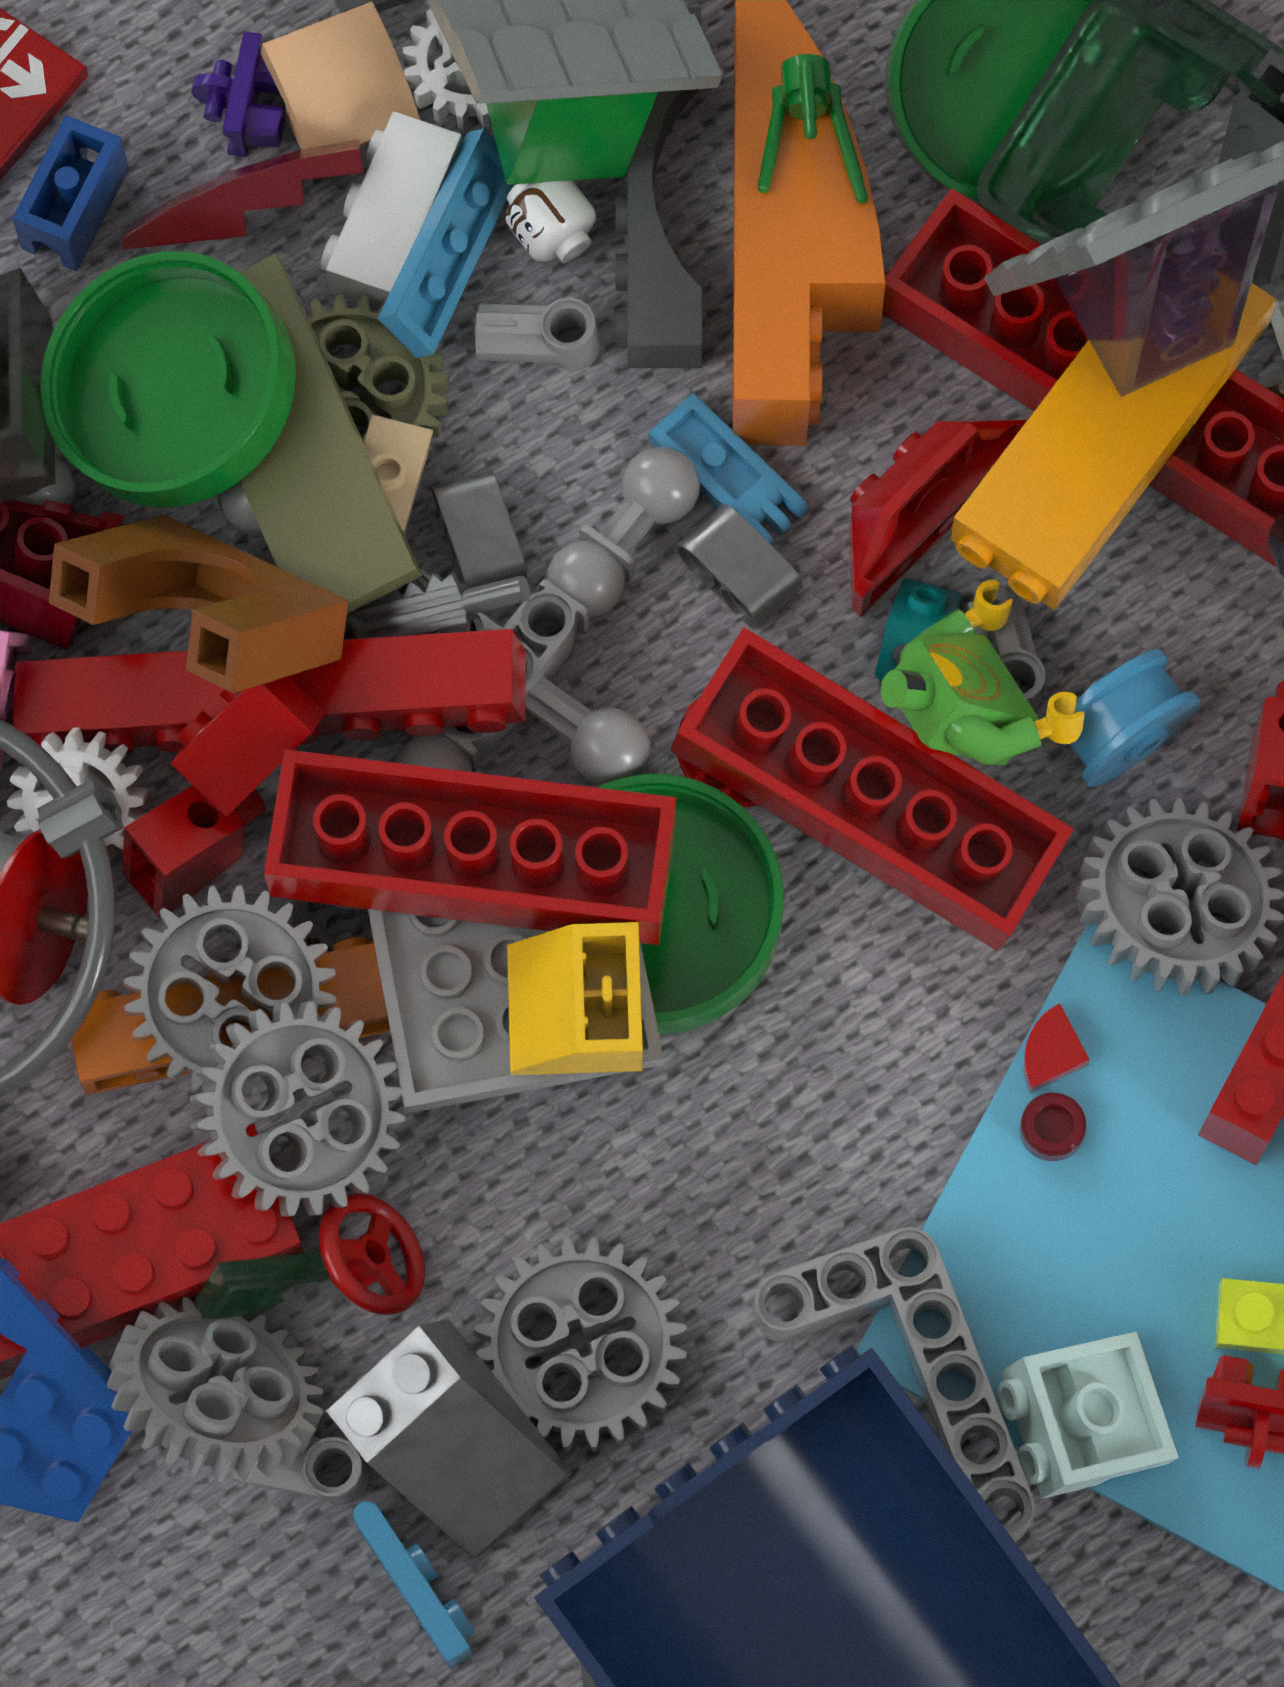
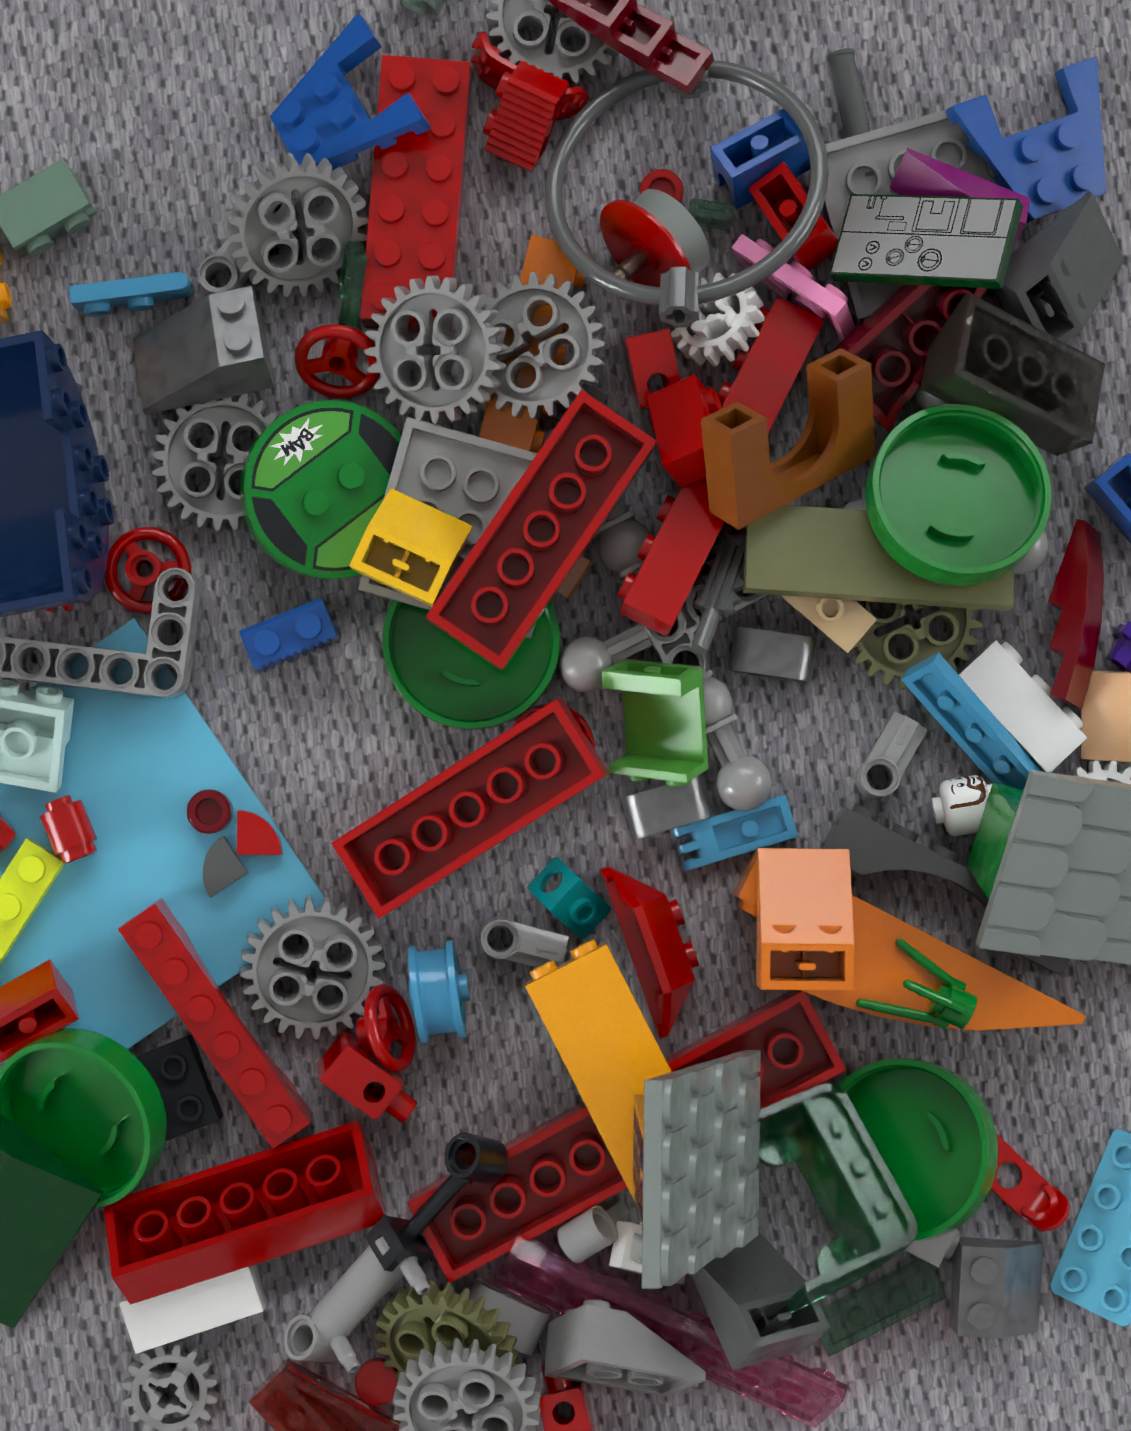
camera: 120 degrees right, 15 degrees up
(552, 1188) = (317, 485): none -> brick
(637, 612) = (661, 720): none -> bright green panel
(764, 1357) = (137, 557): none -> red piece
(767, 1136) = (290, 635): none -> blue brick
(798, 296) = (804, 920): none -> orange slope
(965, 696) = (497, 895): bright green torso -> none
(1117, 1073) = (221, 867): none -> dark grey tile
(1175, 1289) = (69, 829): none -> red brick
(1208, 762) = (380, 1029): none -> red piece

